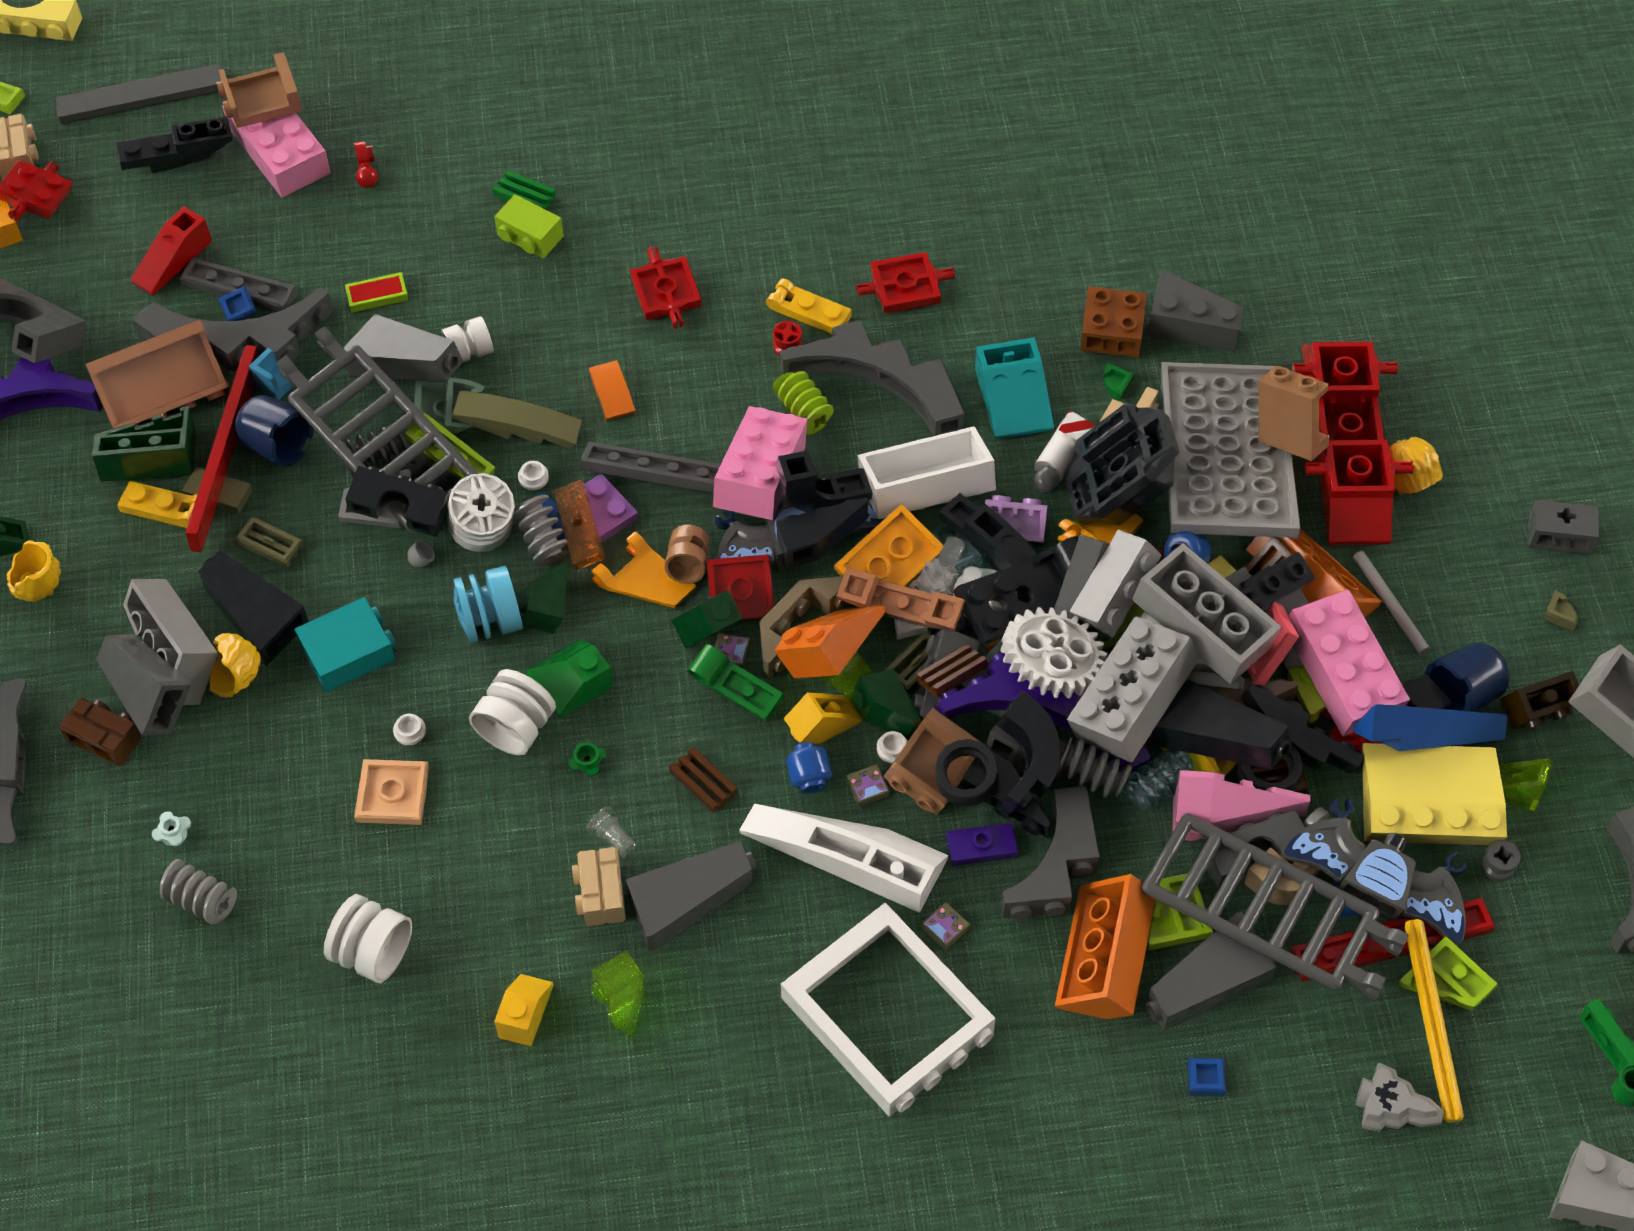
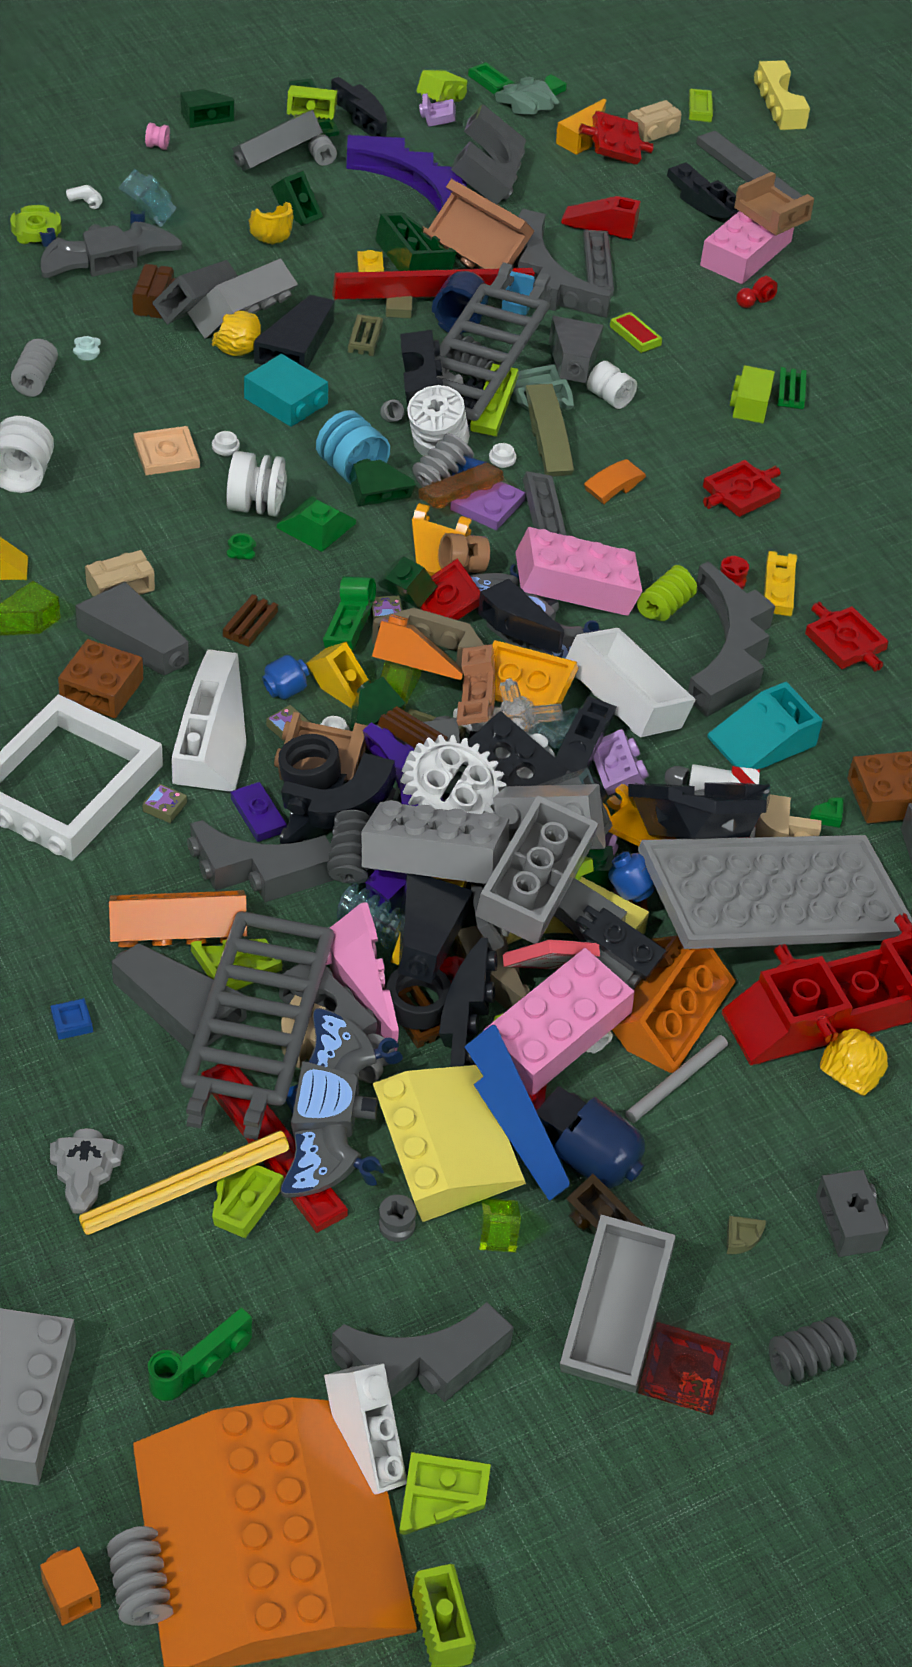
camera: 65 degrees right, 10 degrees down
(238, 305) = (576, 262): blue tile -> none
(611, 831) = (177, 570): clear pin -> none
(759, 939) = (101, 678): none -> dark orange brick
(811, 490) = (553, 590): black arch -> none
(1291, 412) = (810, 922): medium nougat panel -> none

